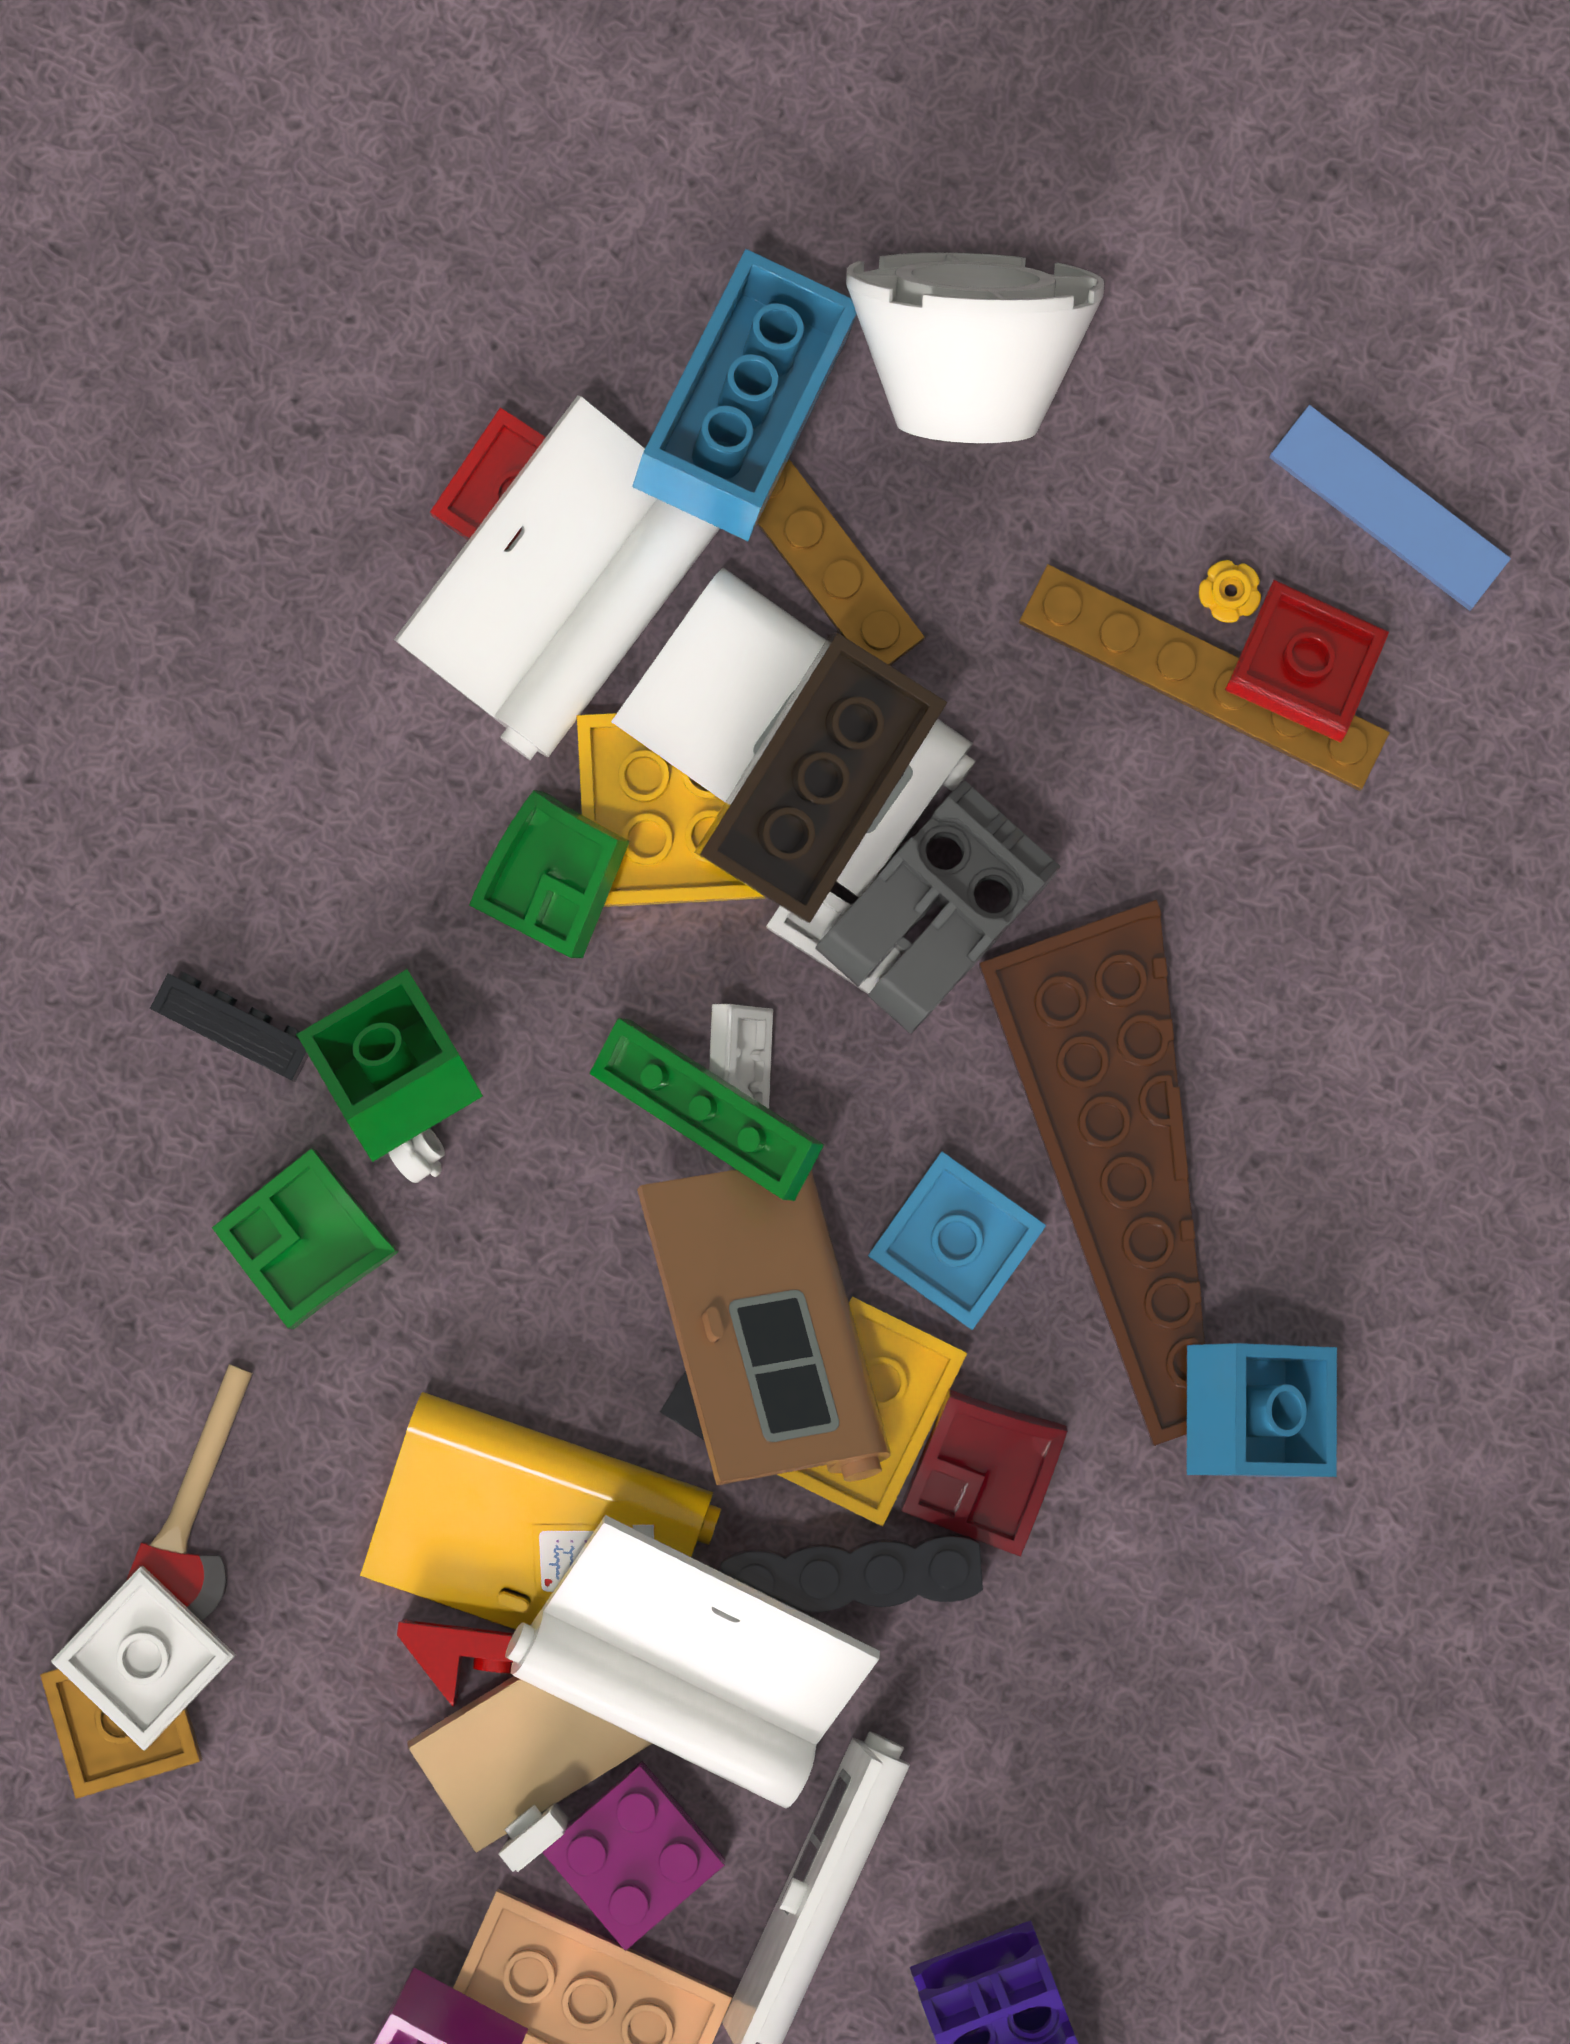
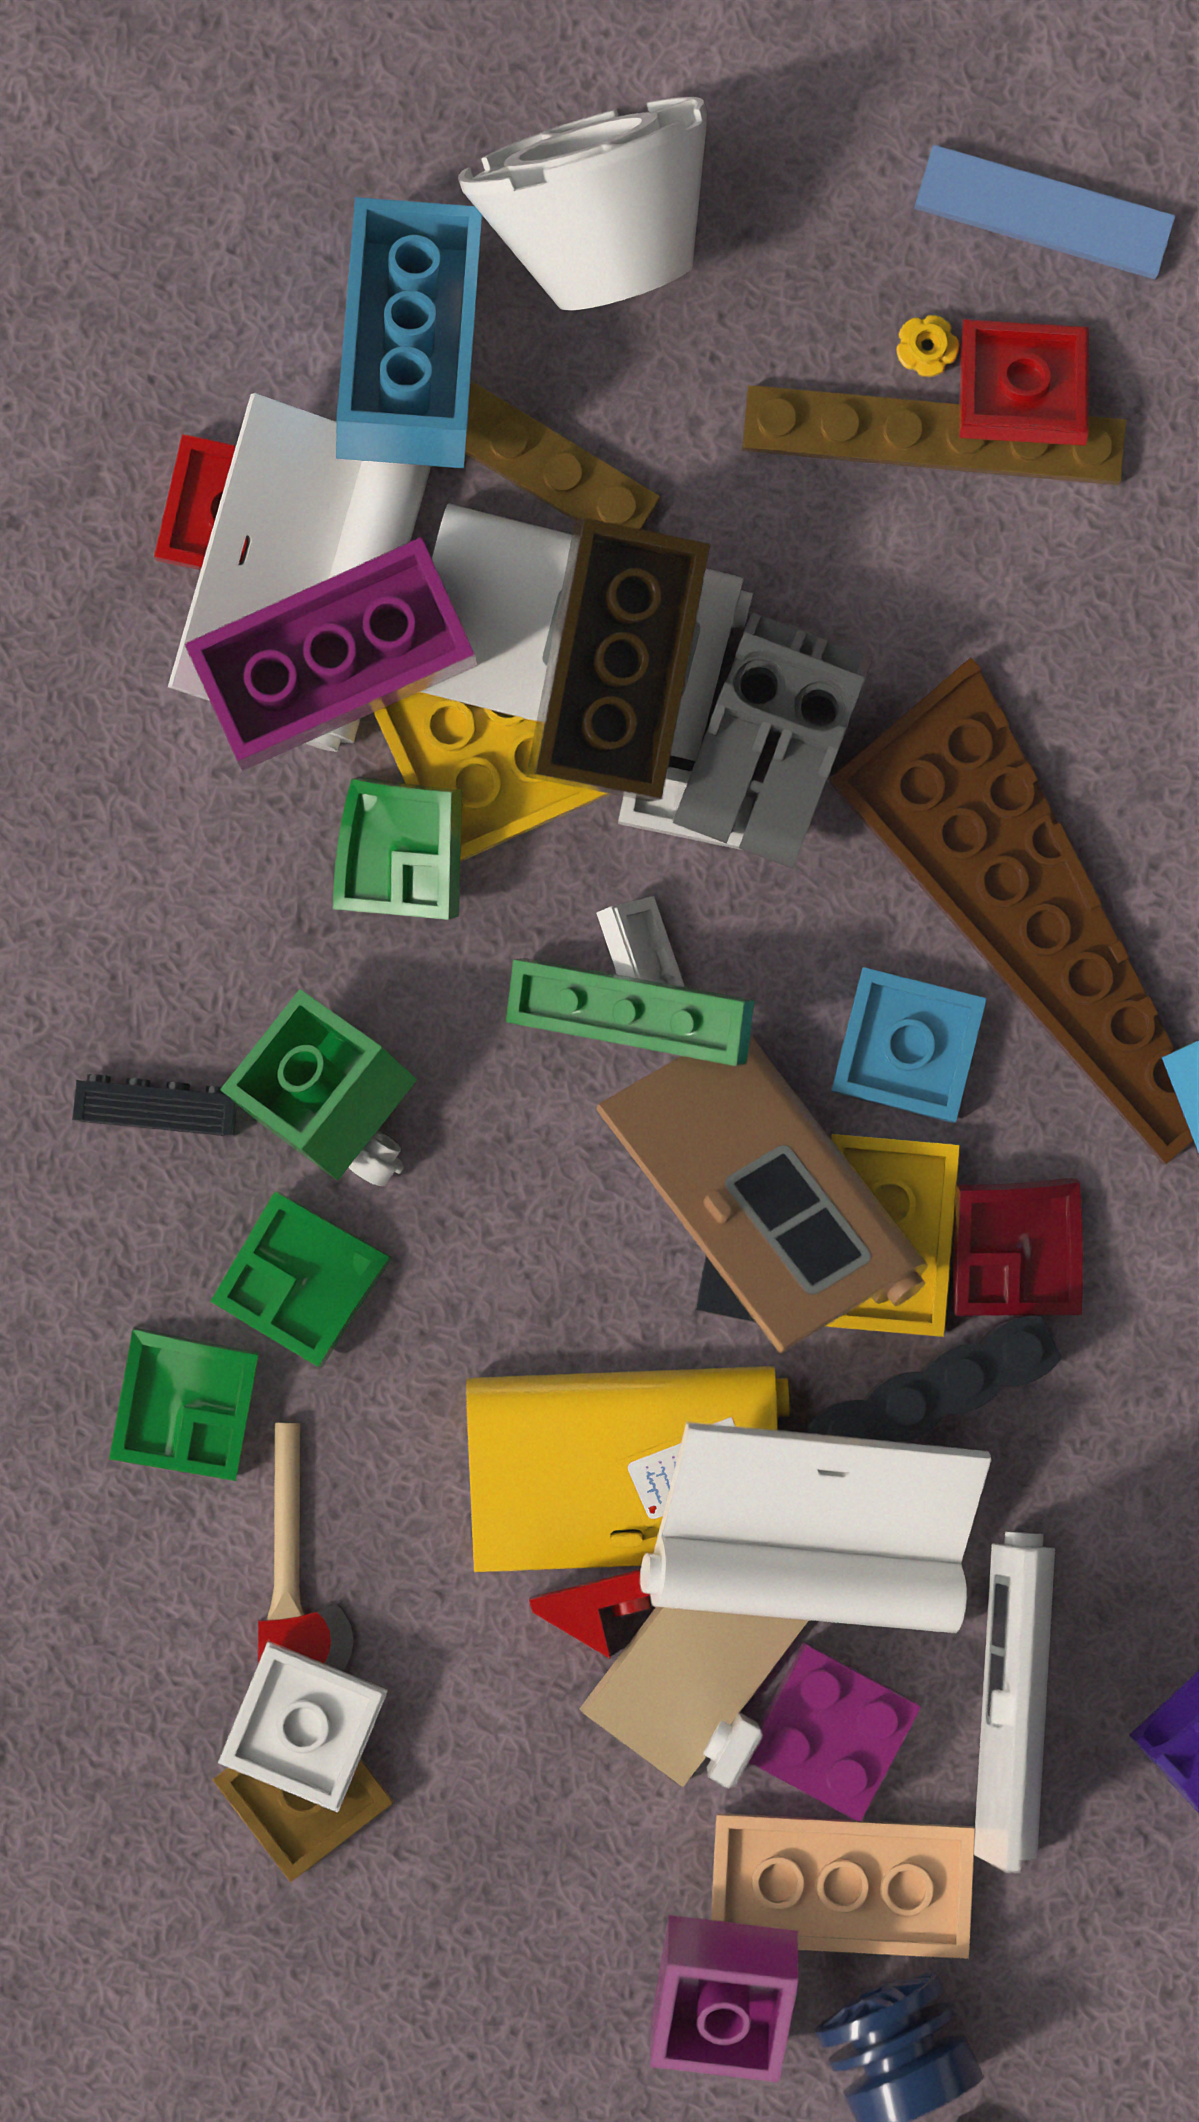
camera: 25 degrees left, 0 degrees up
(149, 1314) = (183, 1405): none -> green plate
(554, 668) = (331, 654): none -> magenta brick

